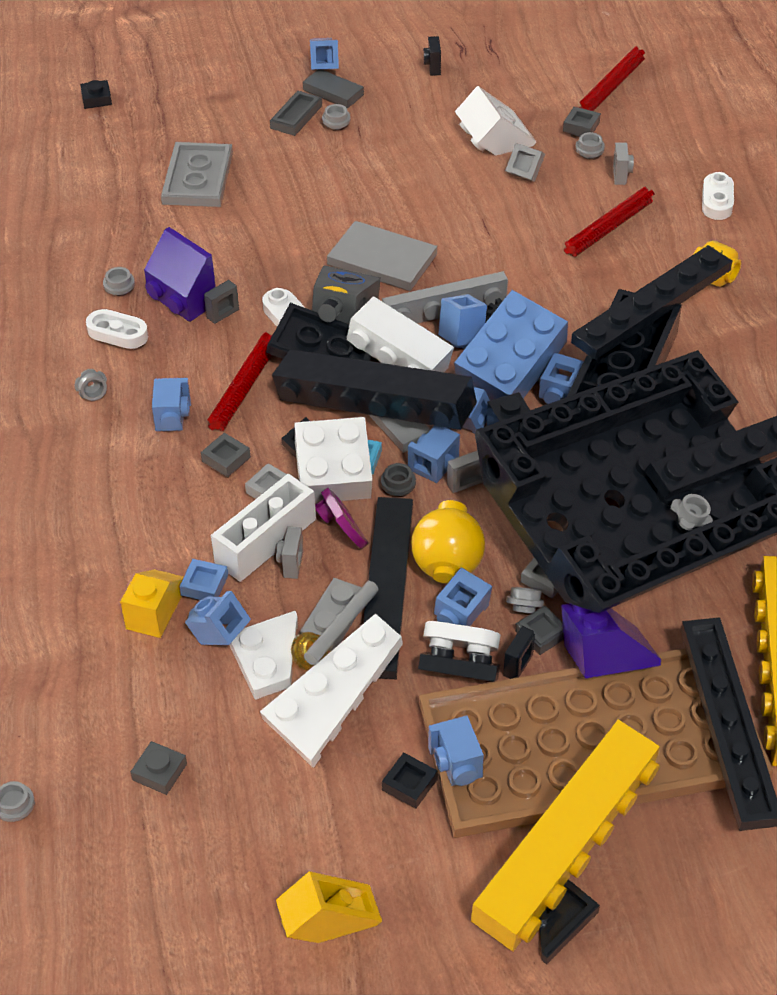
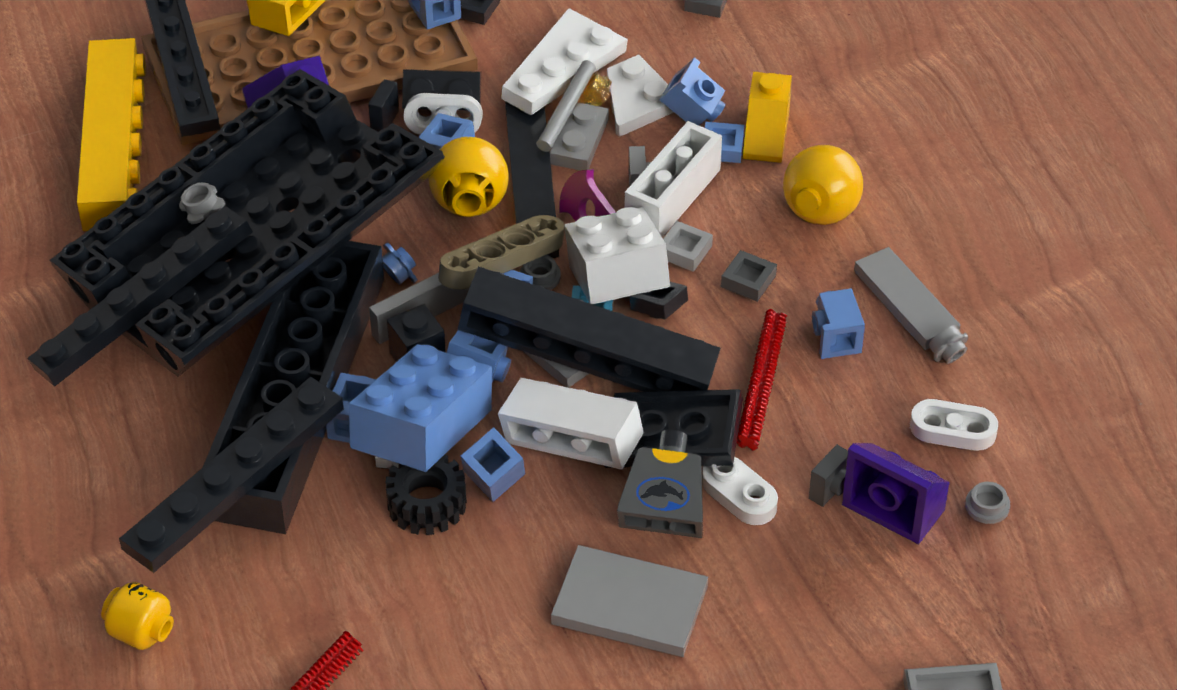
camera: 170 degrees right, 0 degrees up
(105, 431) = (904, 295): none -> light grey tile
(132, 514) = (823, 184): none -> yellow brick
(425, 456) = (502, 250): none -> dark tan beam
(426, 303) = (522, 514): light grey plate -> none

